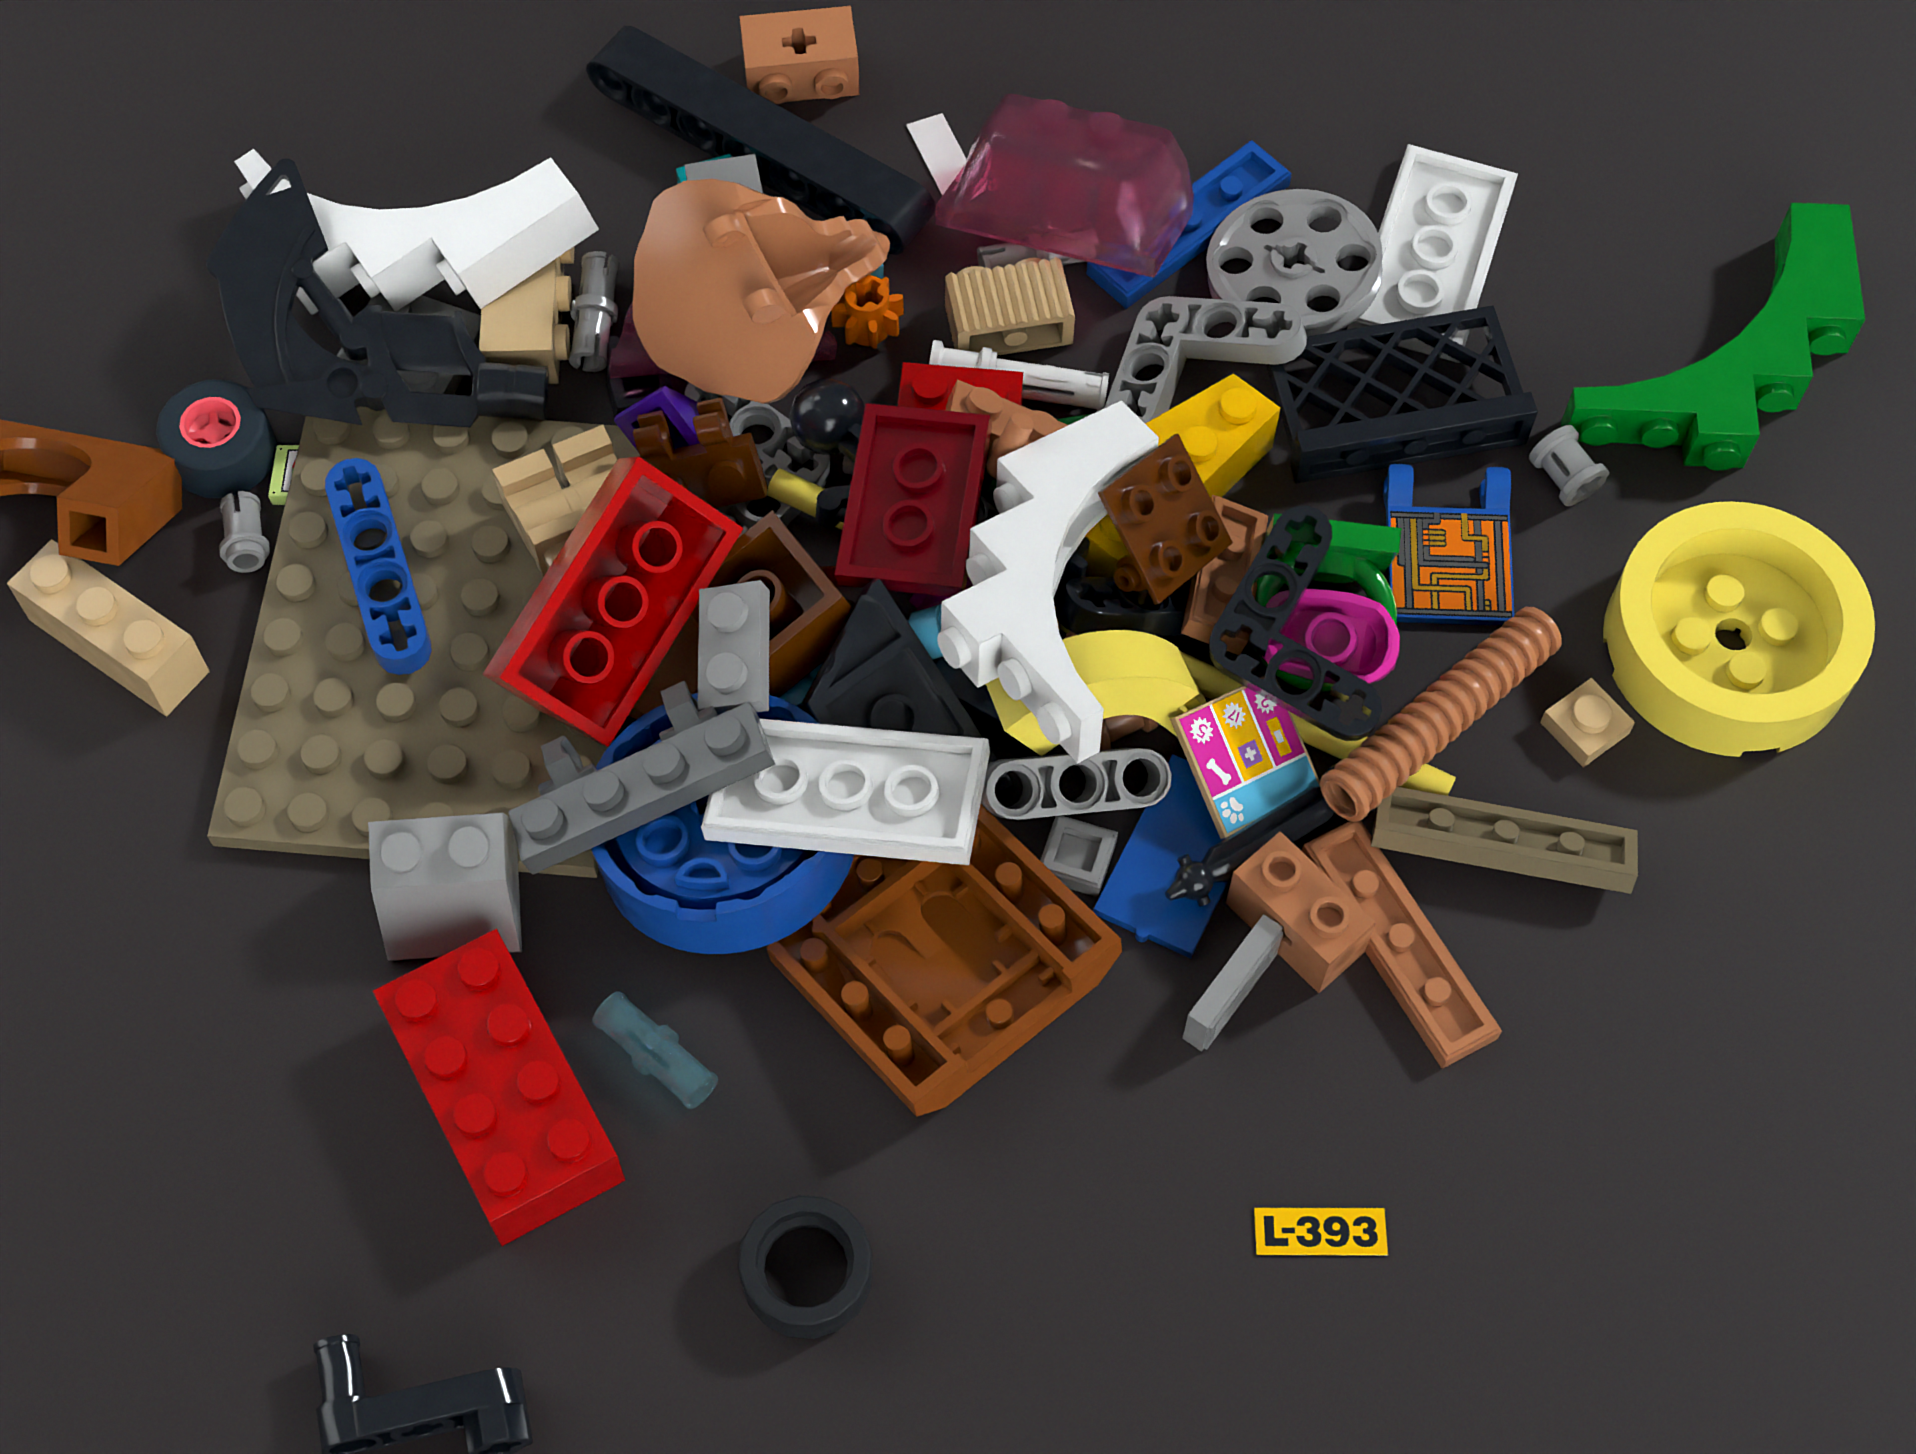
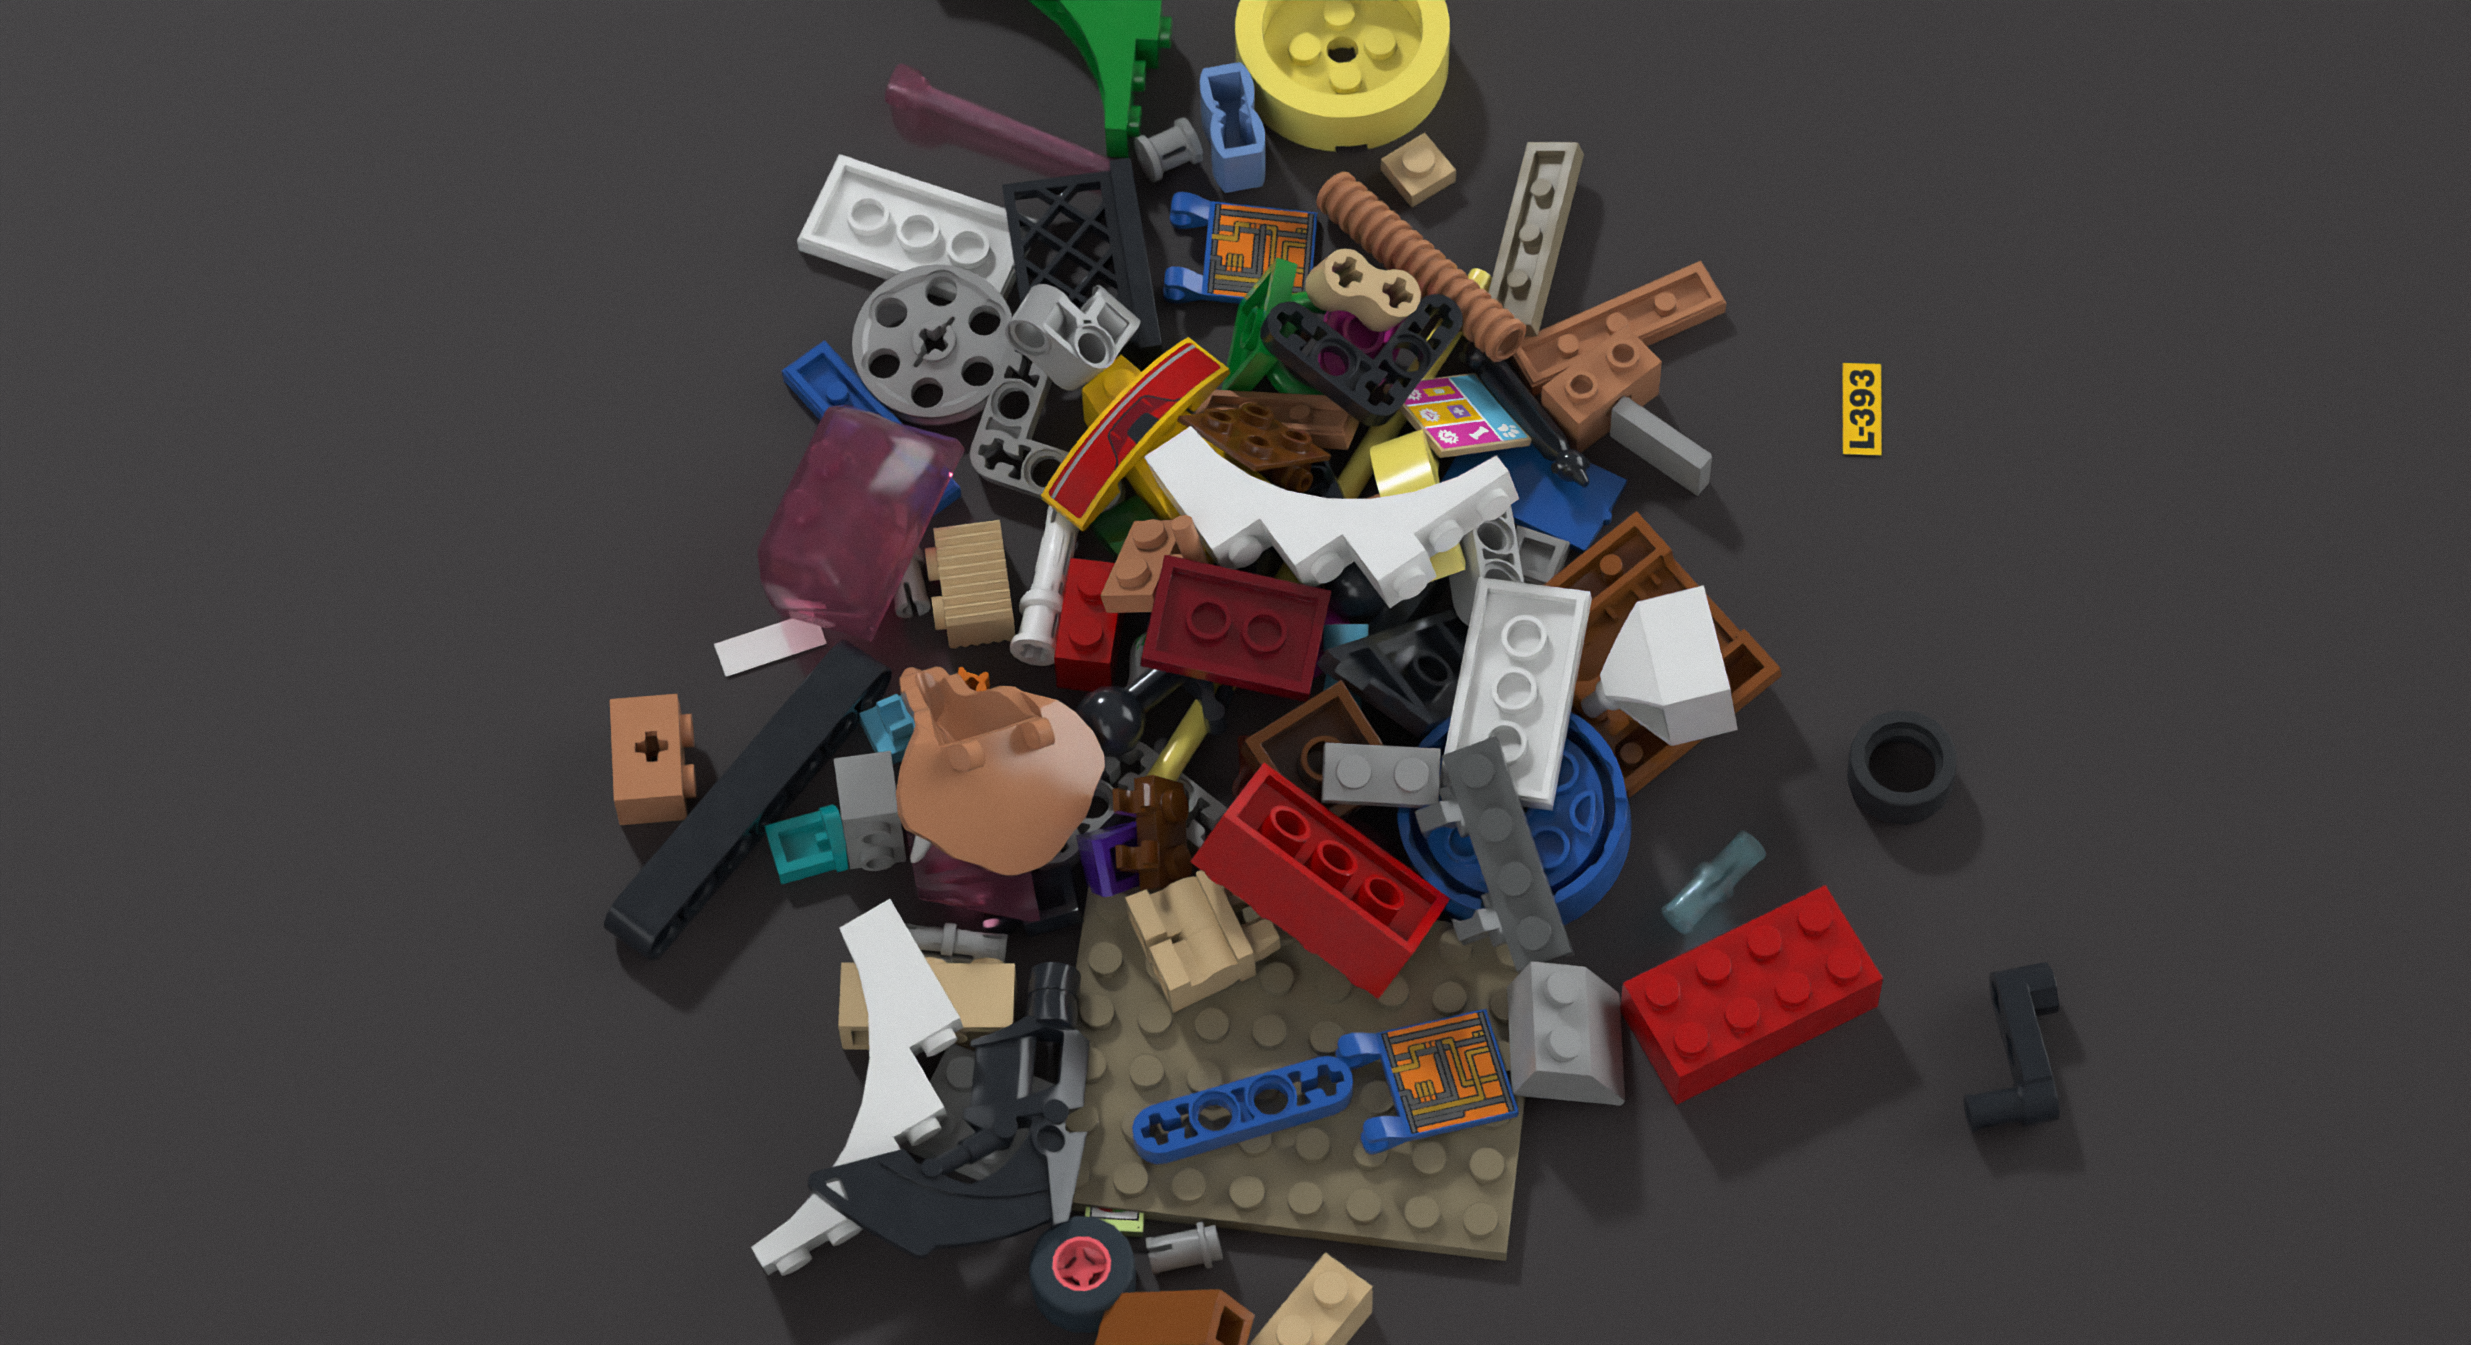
camera: 85 degrees left, 0 degrees up
(405, 753) = (1439, 1076): none -> flag
(883, 967) = (1668, 671): none -> white piece
(1210, 425) = (1129, 428): none -> slope
(1286, 320) = (1070, 341): none -> light grey piece
(1363, 609) = (1371, 294): none -> tan axle
(1598, 515) = (1232, 127): none -> medium blue brick
(1606, 229) = (910, 89): none -> clear pink piece

